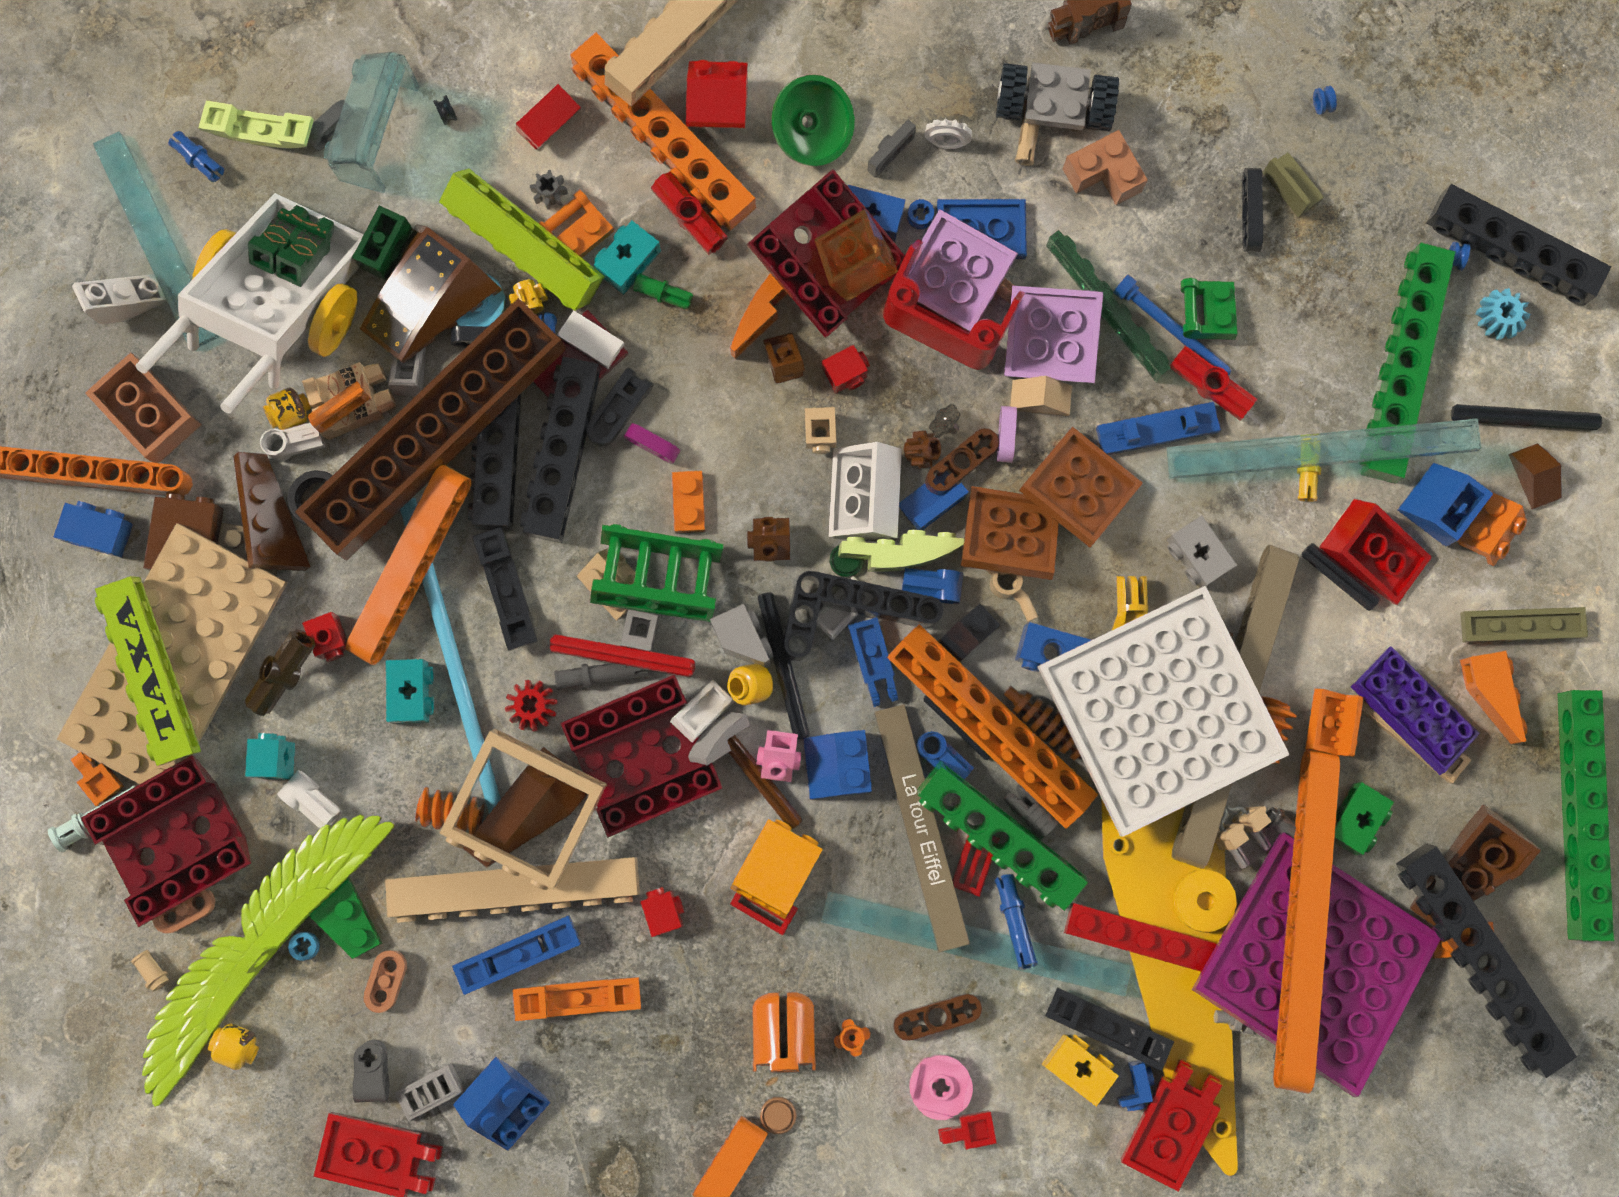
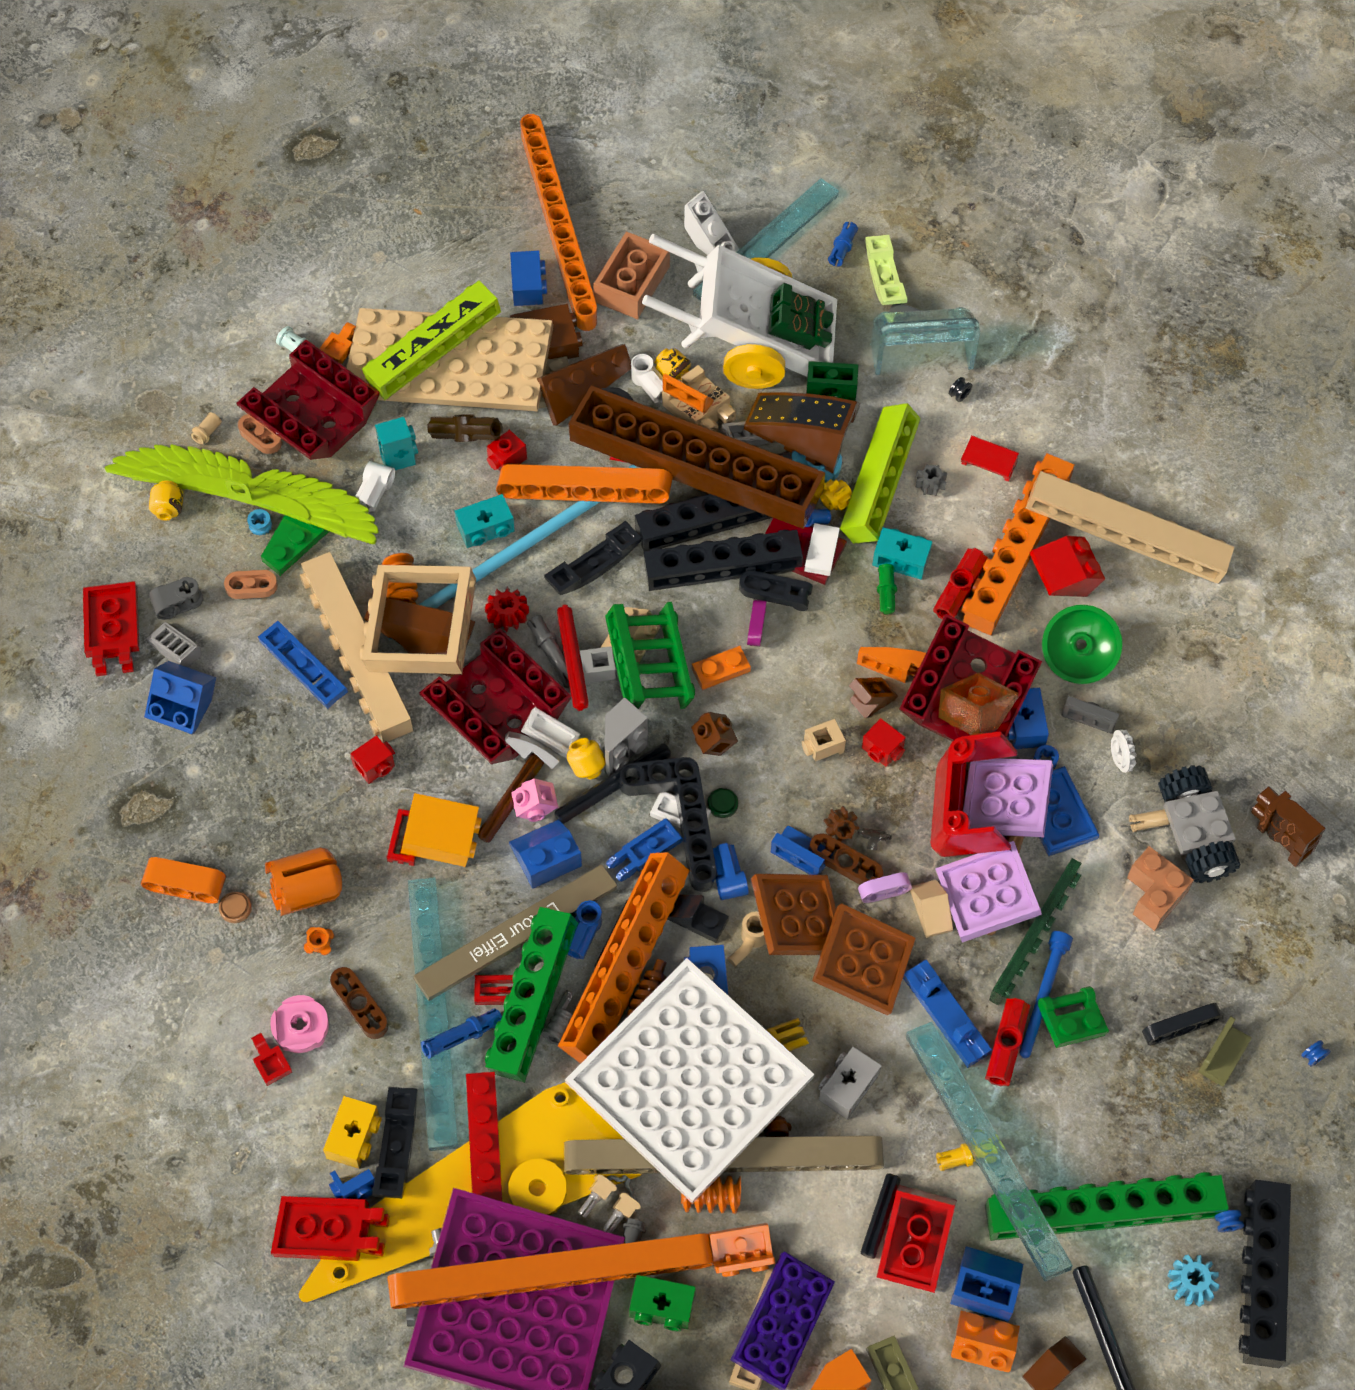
camera: 70 degrees right, 20 degrees down
(576, 998) = (281, 720): orange slope -> none
(586, 231) = (909, 519): orange plate -> none
(865, 491) = (786, 795): white slope -> none
(912, 552) = (749, 844): yellowish green slope -> none

